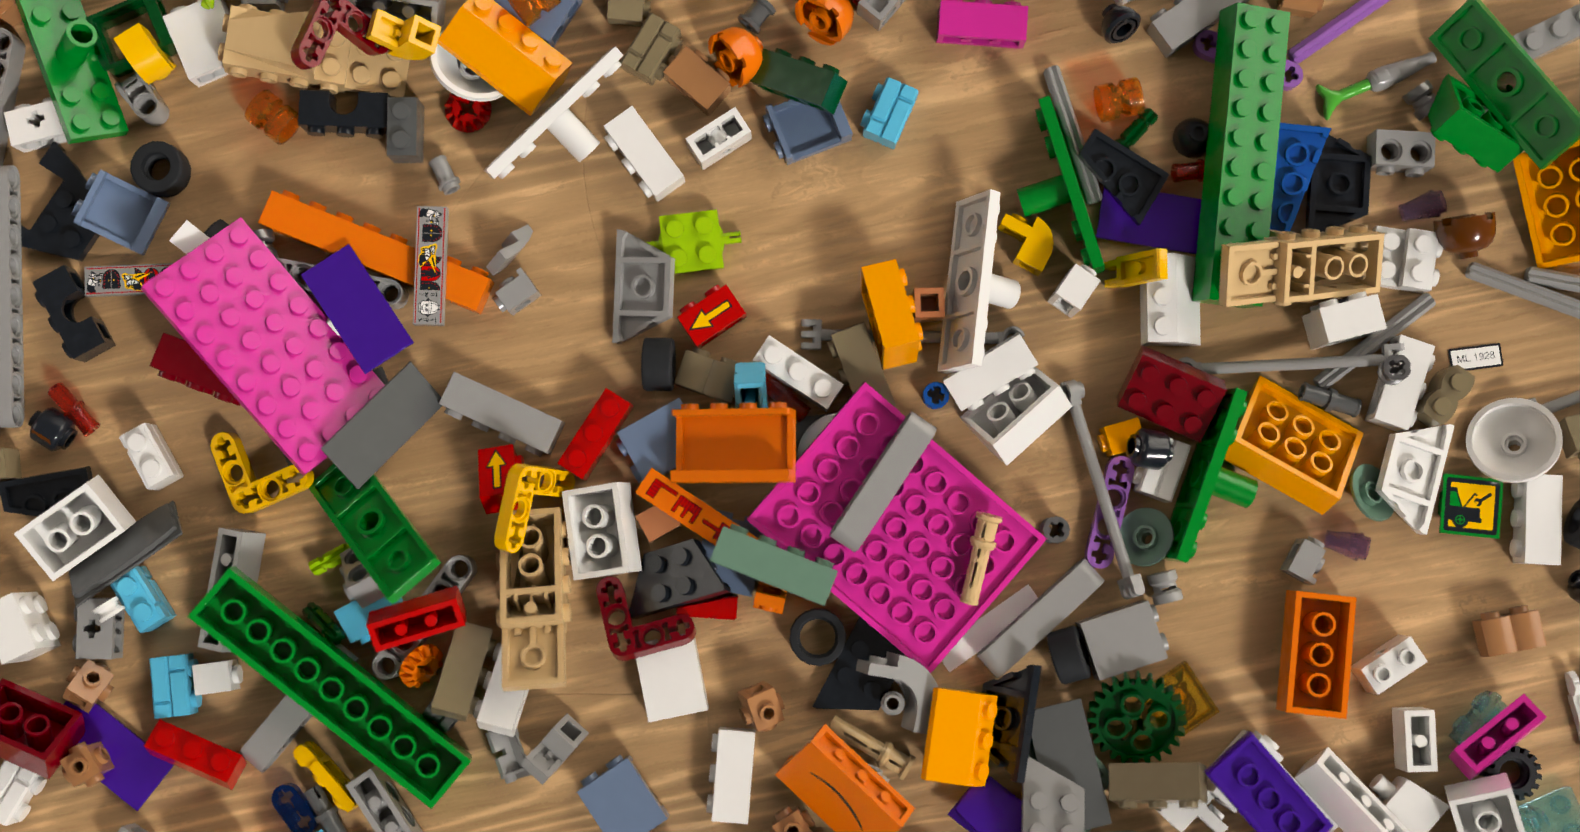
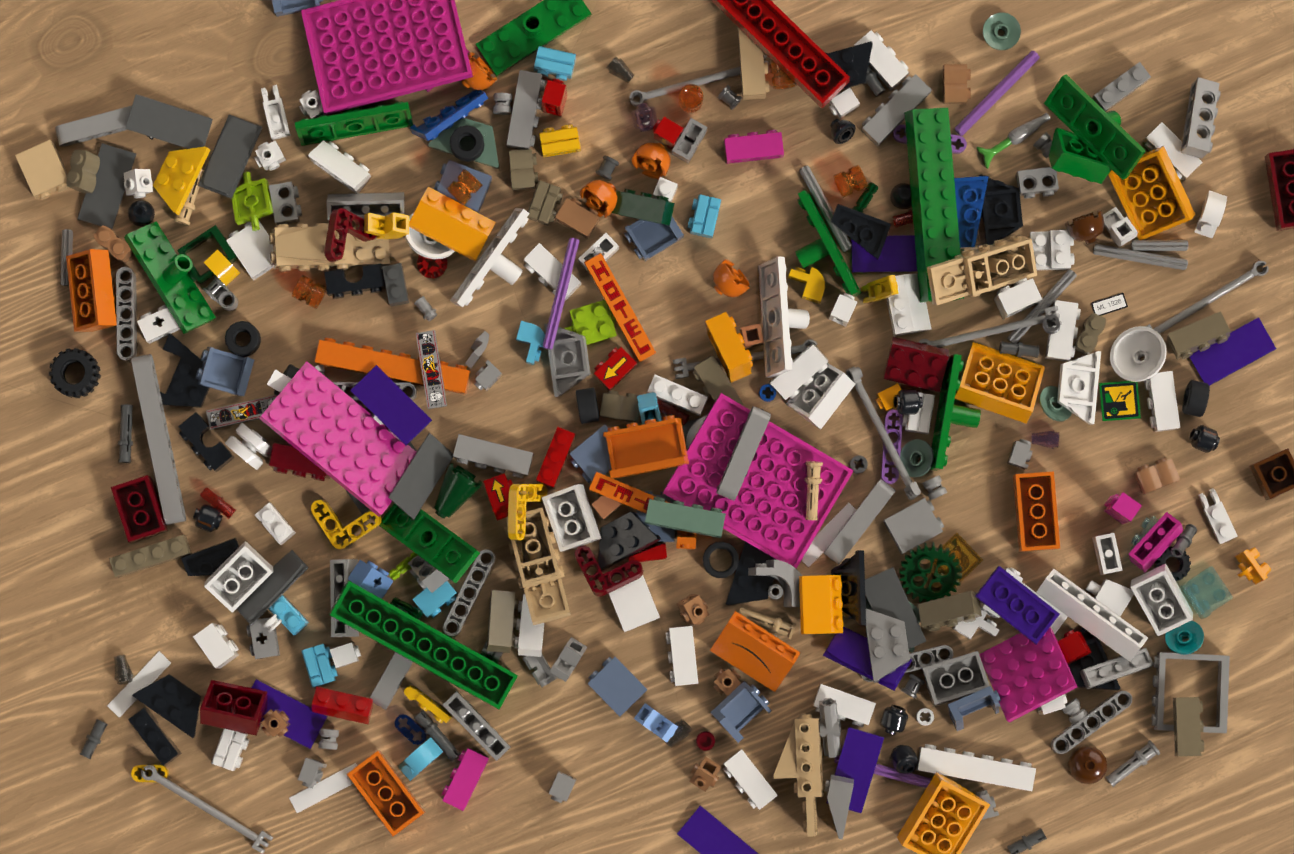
camera: 10 degrees left, 0 degrees up
(88, 685) = (266, 674): medium nougat brick -> none
(130, 331) = (249, 446): none -> white wheel
(166, 802) = (326, 743): none -> light grey wheel
(275, 568) = (371, 579): none -> medium blue brick
(416, 618) = (468, 592): red brick -> none
(425, 655) = (475, 616): orange gear -> none
(434, 455) = (455, 490): none -> dark green cone
(600, 248) = (532, 335): none -> medium azure brick
(649, 187) = (560, 293): none -> medium lavender axle
(735, 224) = (619, 307): none -> orange tile
(840, 58) = (665, 188): none -> white brick
(909, 215) = (729, 280): none -> orange cylinder
(1068, 655) = (881, 541): black tyre -> none
(1388, 664) = (1083, 510): white brick -> none
(1428, 205) = (1059, 213): cone -> none
(1456, 674) = (1122, 507): none -> dark pink brick
(1517, 246) = (1120, 228): none -> white brick
(1537, 742) = (1184, 540): none -> dark grey pin

